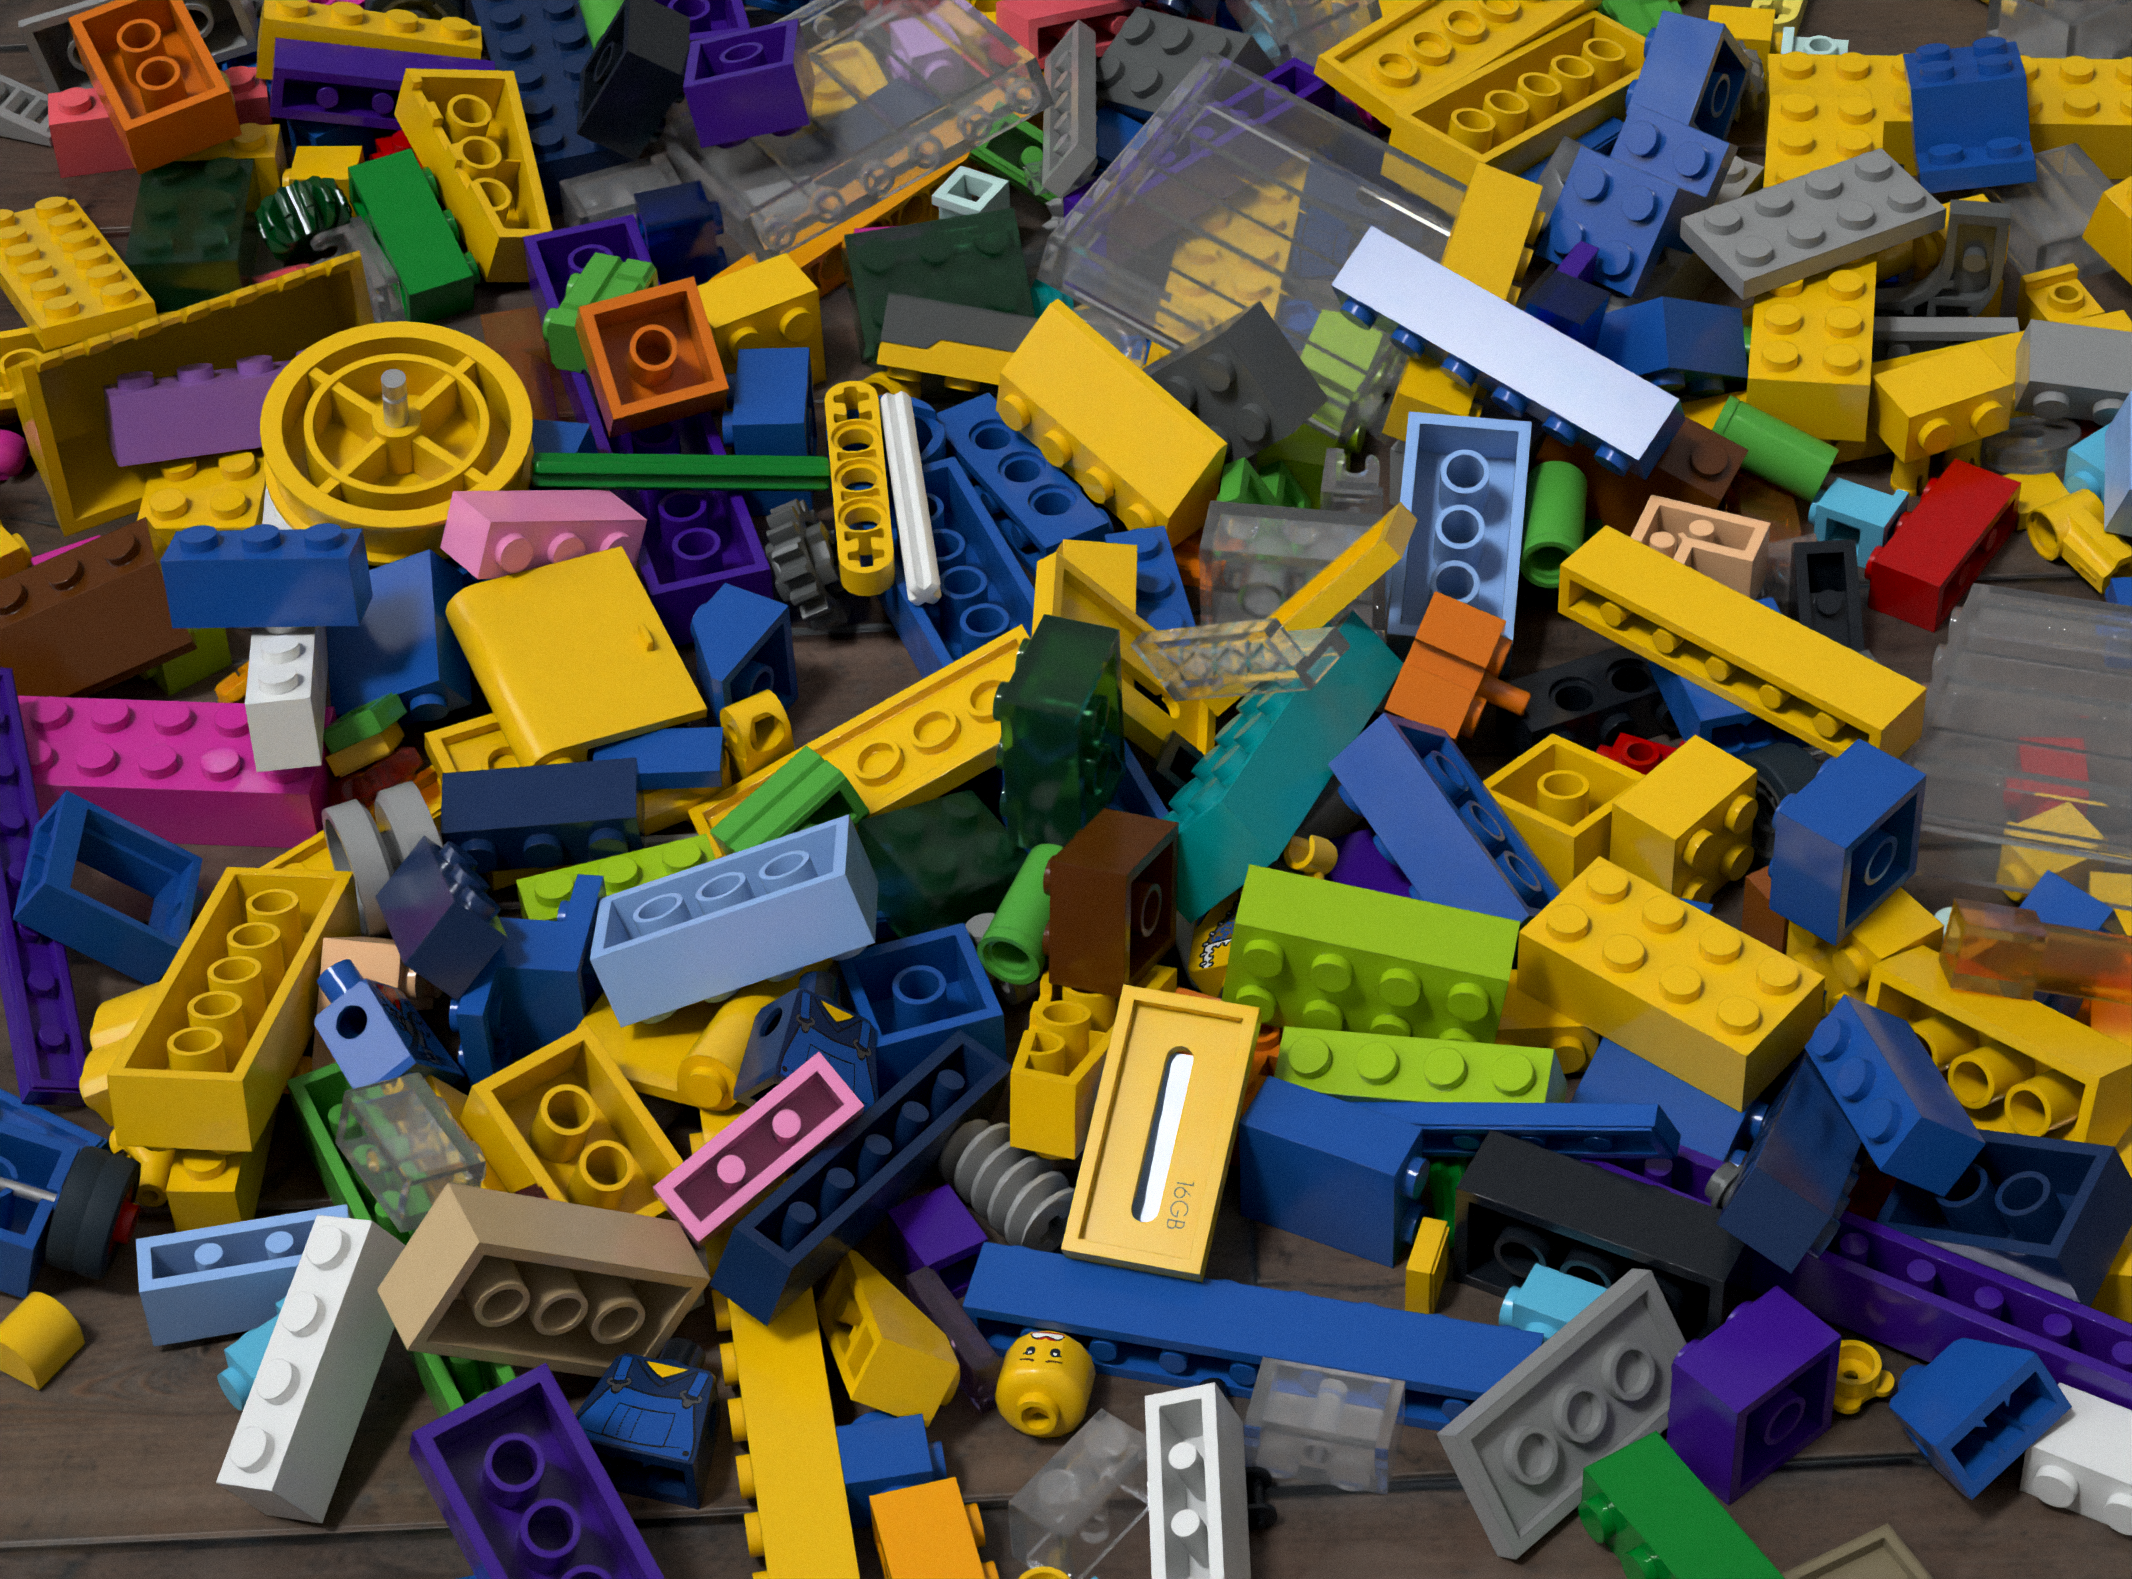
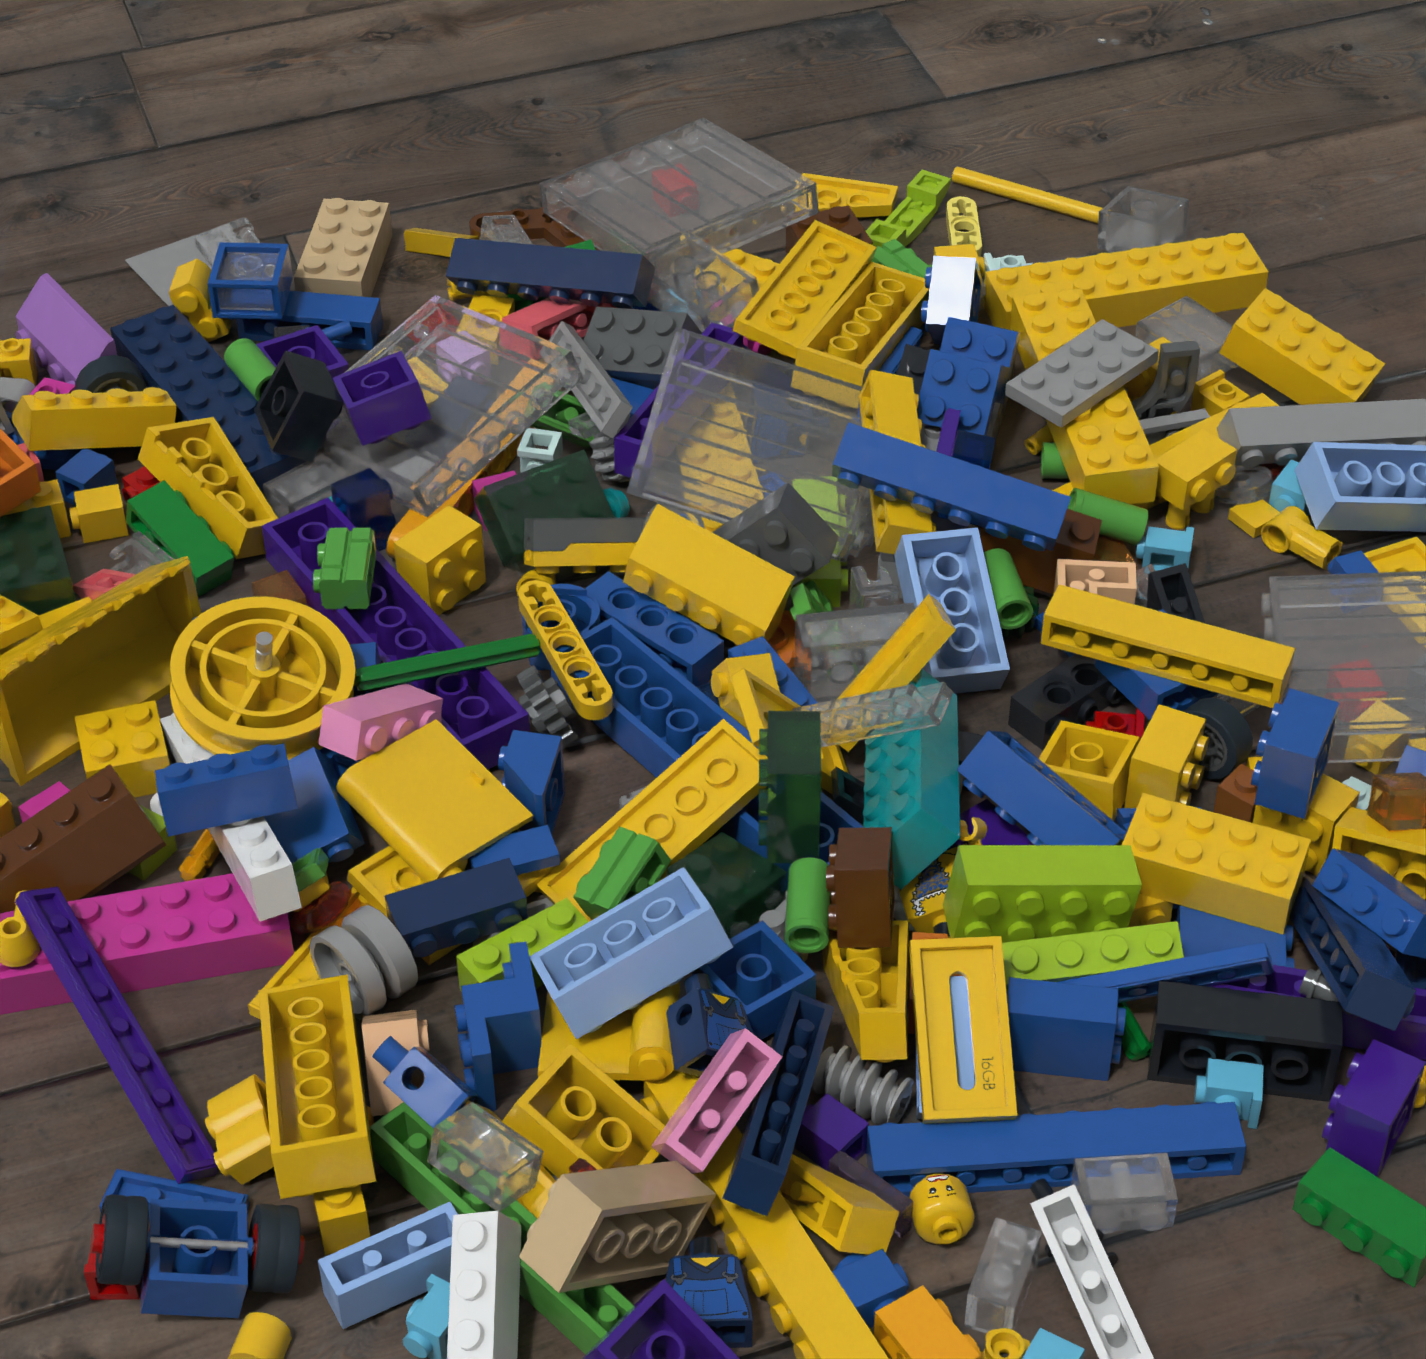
camera: 20 degrees left, 0 degrees up
(125, 852) = (157, 991): blue window -> none
(154, 1171) = (266, 1190): yellow arm -> none
(188, 412) = (105, 682): medium lavender slope -> none
(300, 213) = (96, 538): dark green gear -> none
(347, 81) = (99, 442): dark purple brick -> none
(442, 916) = (434, 991): dark blue brick -> none
(651, 357) = (401, 590): orange brick -> none
(755, 733) = (569, 824): yellow leg -> none
(771, 415) = (481, 611): blue brick -> none
(910, 499) = (603, 652): white axle -> none
(1427, 1266) = (1137, 1076): yellow tile -> none
(1455, 670) = (987, 690): orange brick -> none
(1564, 1408) = (1274, 1148): light grey plate -> none
(1677, 344) = (1032, 459): blue brick -> none
(1942, 544) = (1221, 554): red brick -> none
(1969, 115) = (1127, 288): blue bracket -> none

